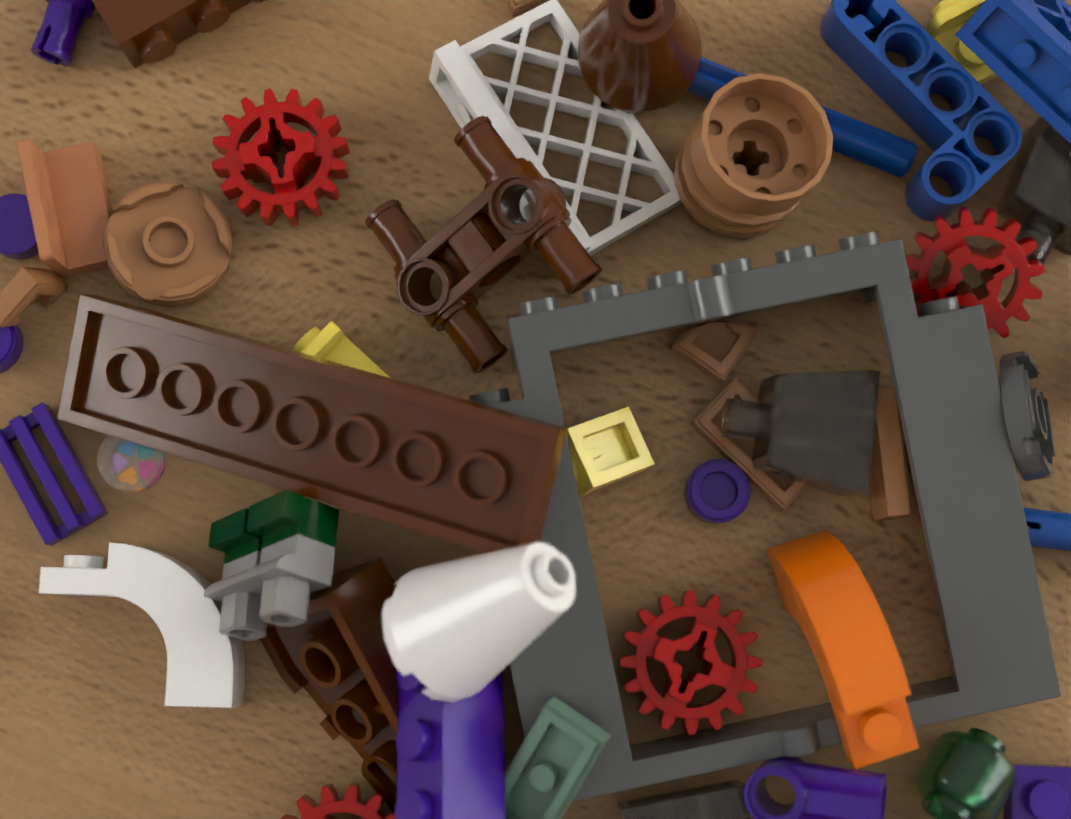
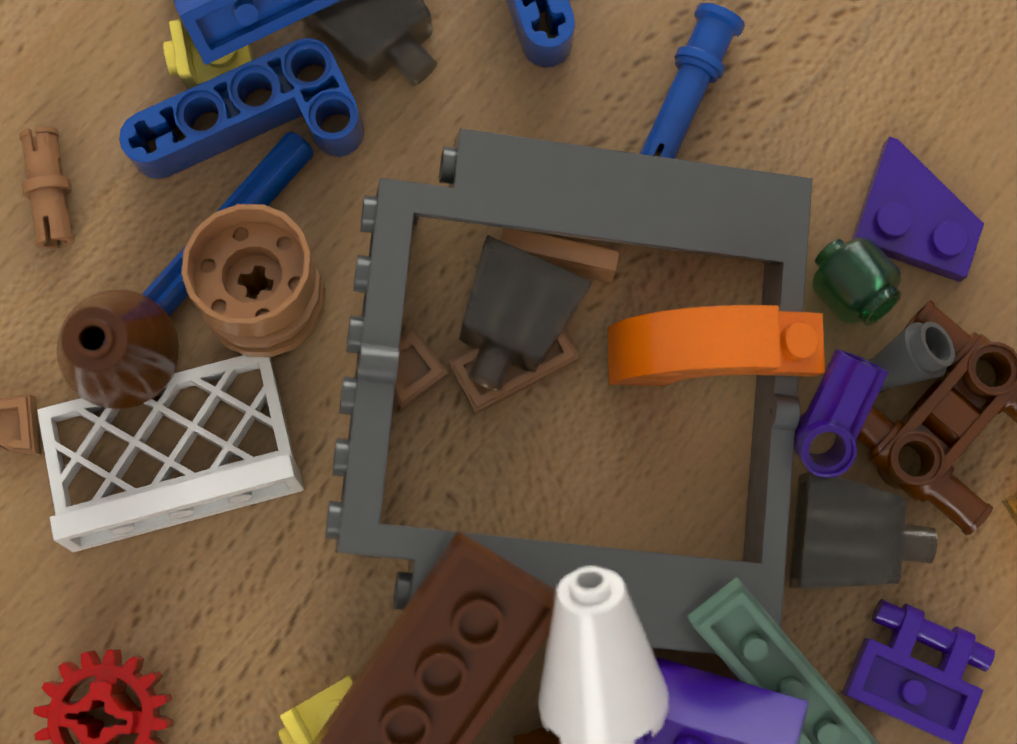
camera: 70 degrees left, 0 degrees up
(482, 244) = (254, 553): reddish brown piece -> none
(607, 450) = (478, 498): light yellow bracket -> none
(715, 672) = (704, 466): red gear -> none
(717, 491) = (544, 410): dark purple tile -> none
(995, 262) = (419, 103): red gear -> none
(1026, 417) = (565, 123): dark grey tile -> none

